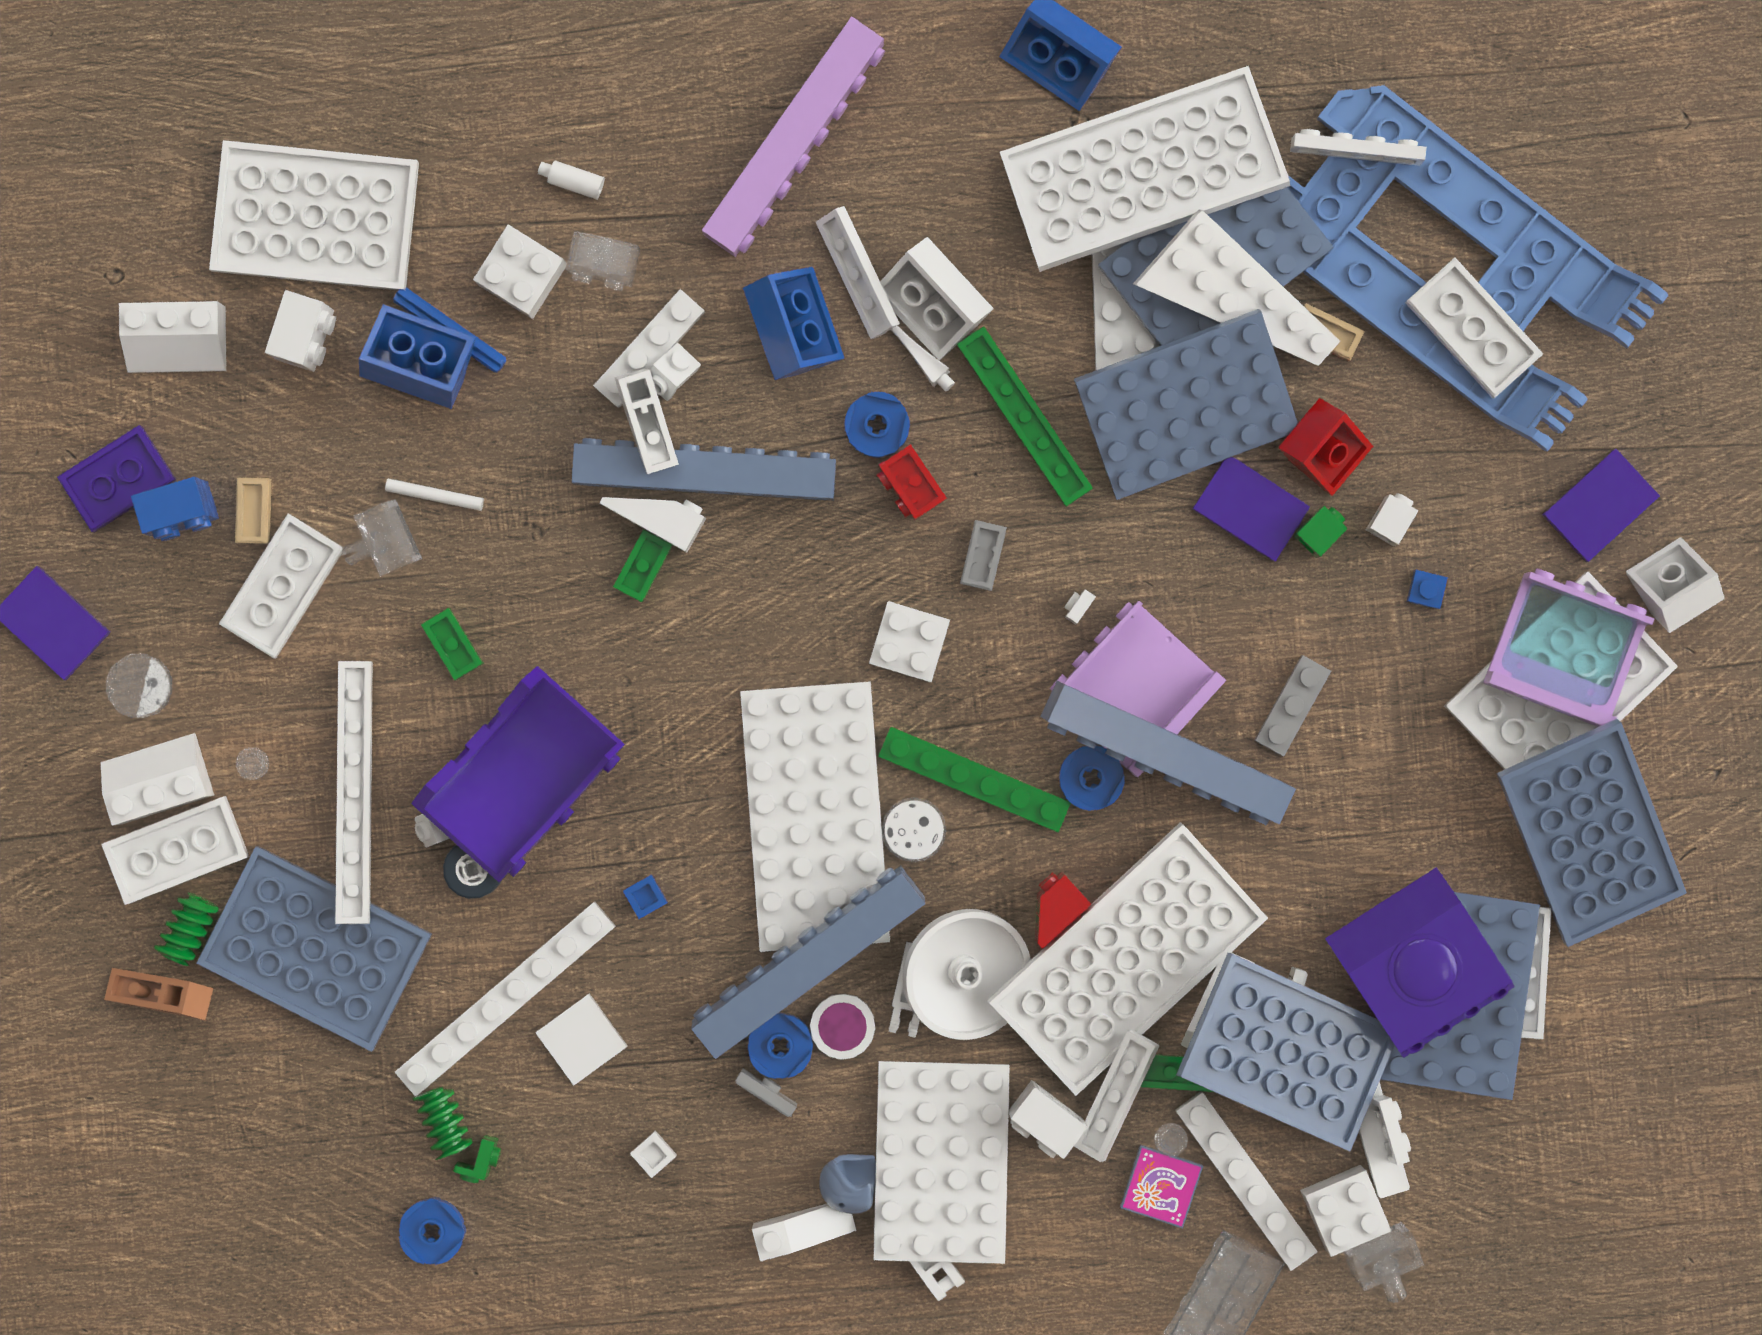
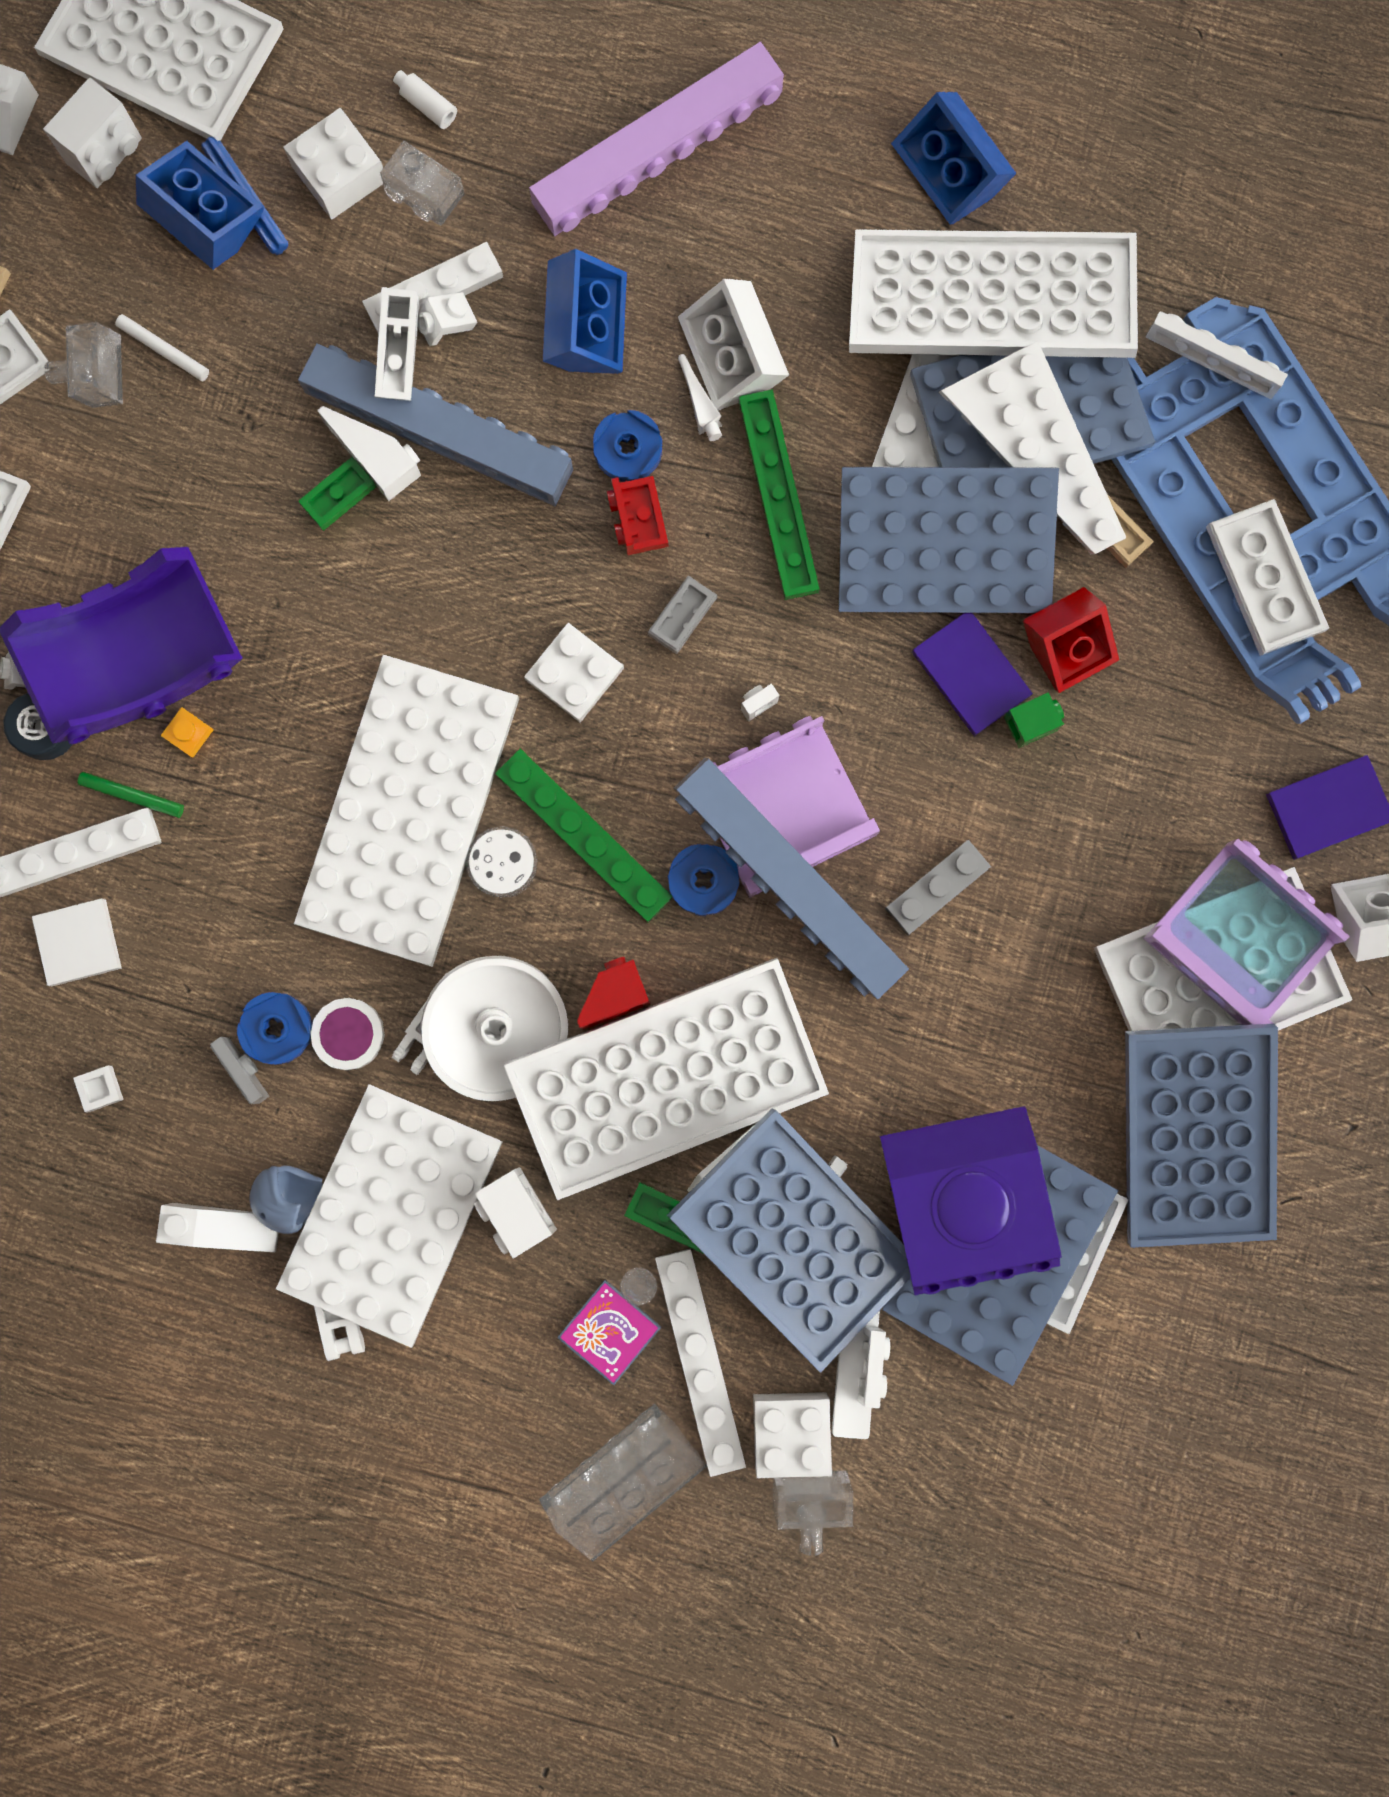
camera: 20 degrees right, 5 degrees down
(452, 644) = (115, 497): green plate -> none
(573, 896) = (130, 794): none -> green bar
(599, 823) = (187, 732): none -> light orange plate
(645, 896) = (201, 822): blue plate -> none
(807, 961) = (336, 950): sand blue brick -> none
(857, 272) = (668, 291): white plate -> none
(1117, 1095) = (598, 1216): white plate -> none
(1392, 518) = (1112, 737): white brick -> none
(1427, 589) = (1120, 823): blue plate -> none

